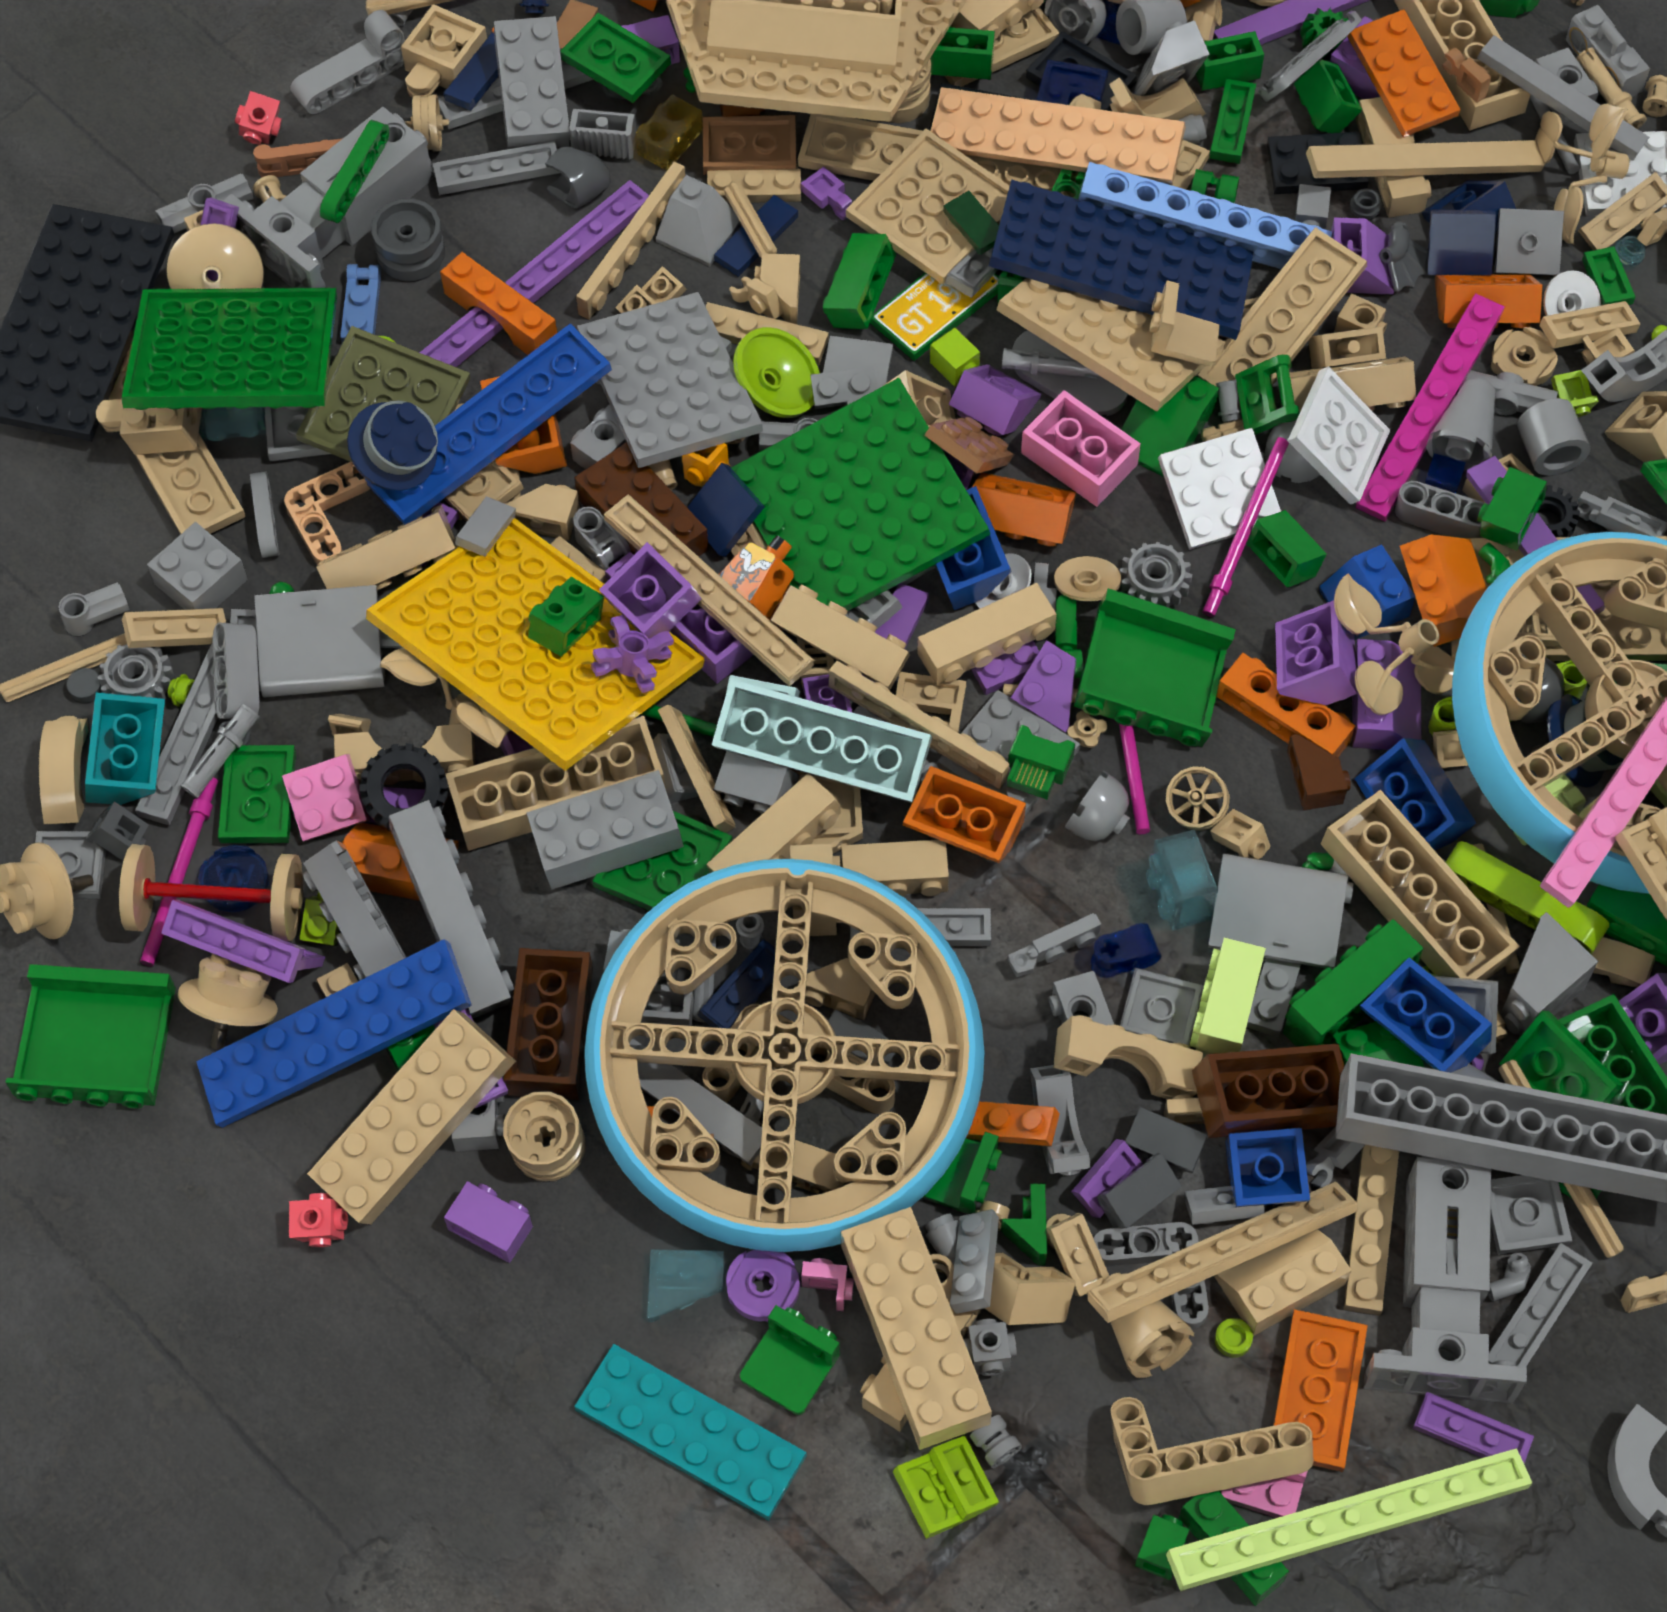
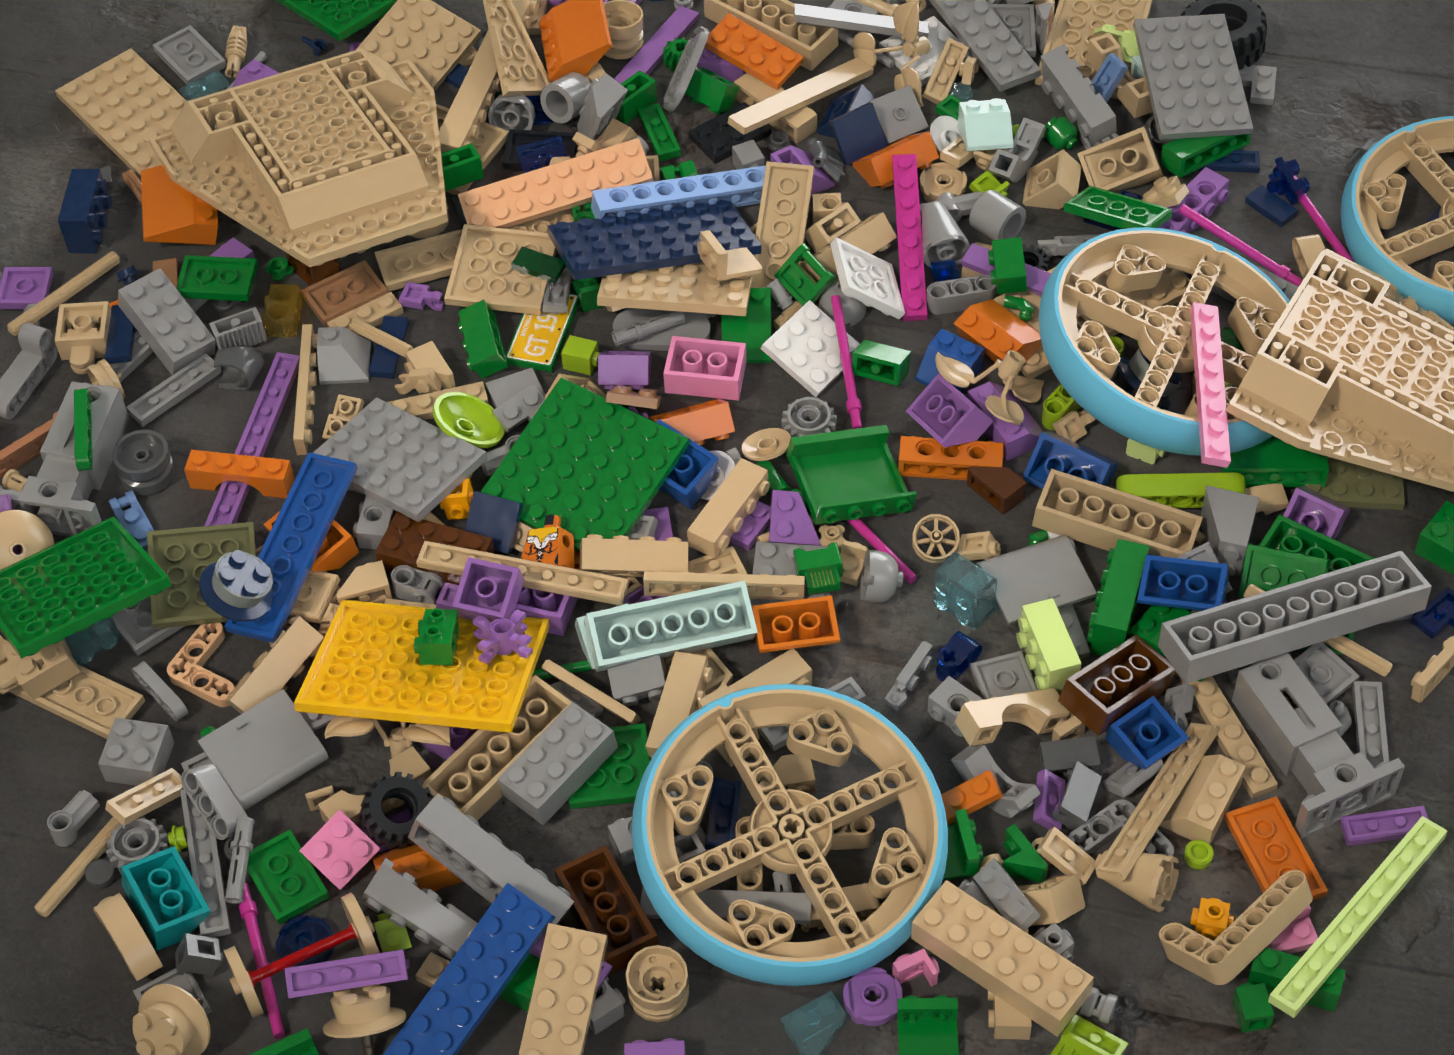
camera: 30 degrees left, 10 degrees down
(485, 526) = (334, 613): light grey tile -> none
(1085, 772) = (852, 559): none -> tan bracket
(1177, 1430) = (1211, 917): none -> light orange brick
(1470, 76) = (797, 32): medium nougat plate -> none
(1620, 311) = (985, 124): none -> light aqua slope

